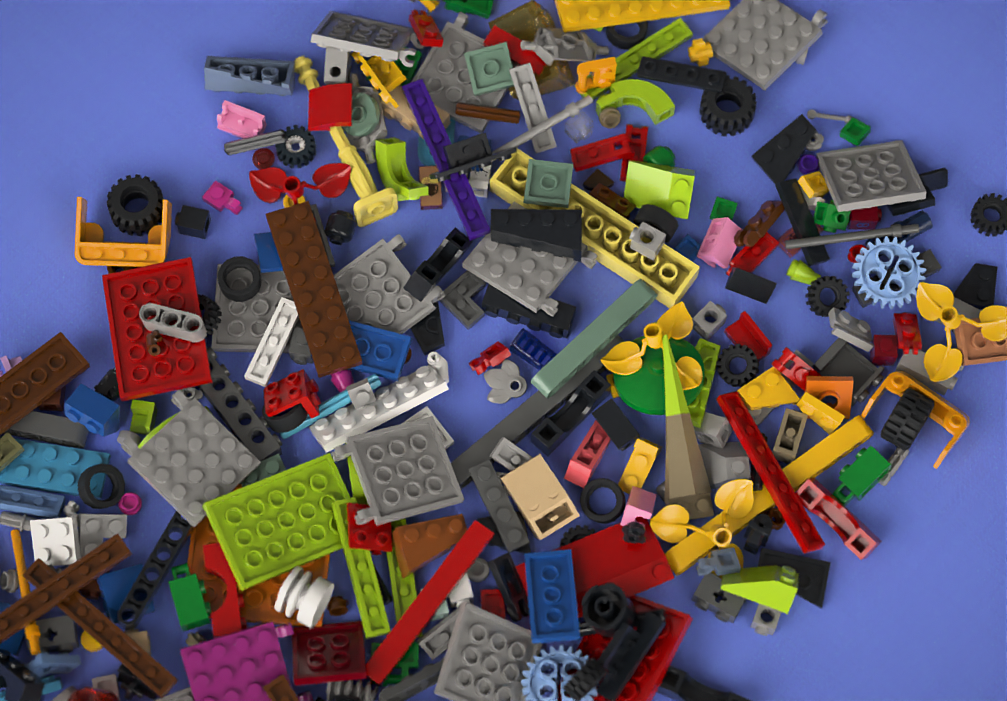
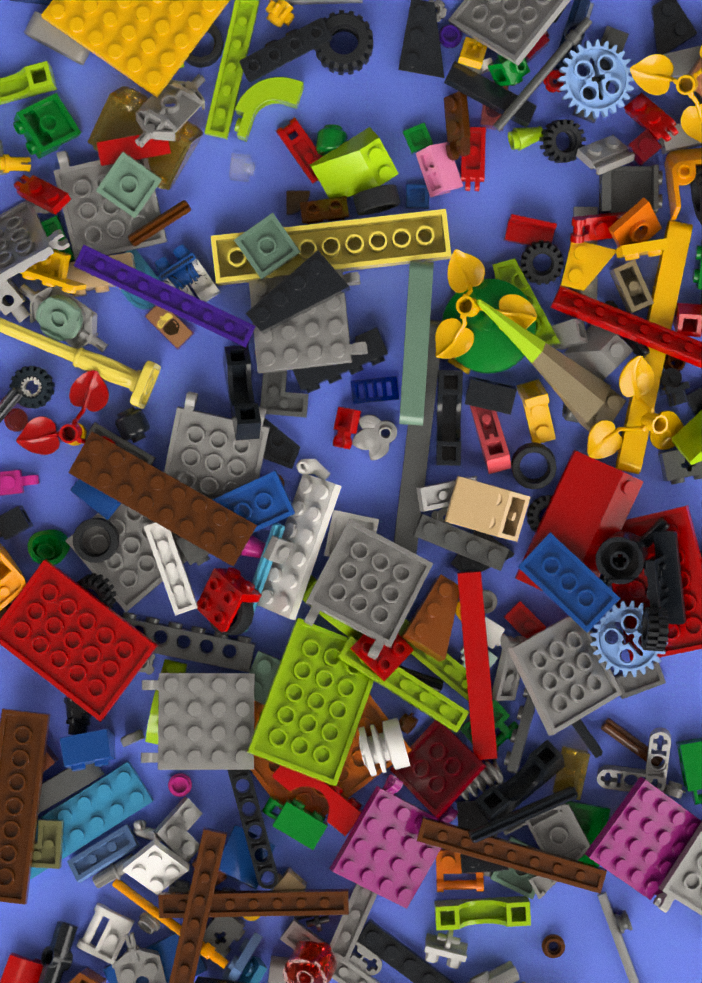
camera: 40 degrees left, 20 degrees up
(118, 486) = (165, 795): black tyre -> none
(143, 416) = (126, 711): lime panel -> none
(151, 341) = (86, 660): reddish brown arm -> none
(165, 315) = (74, 632): light grey beam -> none
(194, 638) = (330, 843): dark tan plate -> none
(204, 257) = (48, 545): none -> green piece
(330, 106) = (31, 333): red slope -> none
(394, 169) = (132, 340): lime arch -> none
(469, 153) = (184, 279): black bracket -> none
(510, 586) = (524, 596): black hinge -> none
(532, 105) = (192, 187): light grey plate -> none
(570, 110) = (225, 162): light grey bar -> none
(602, 74) = (220, 111): light orange plate -> none
(602, 152) = (279, 175): red plate -> none
(609, 117) = (258, 137): dark tan plate -> none
(634, 533) = (586, 476): black plate -> none
(638, 504) = (568, 450): bright pink hinge -> none
(649, 249) = (396, 218): light grey brick -> none
(707, 329) = (487, 253): light grey brick -> none
(722, 561) = (669, 439): sand blue plate -> none
(750, 285) = (494, 185): black slope -> none

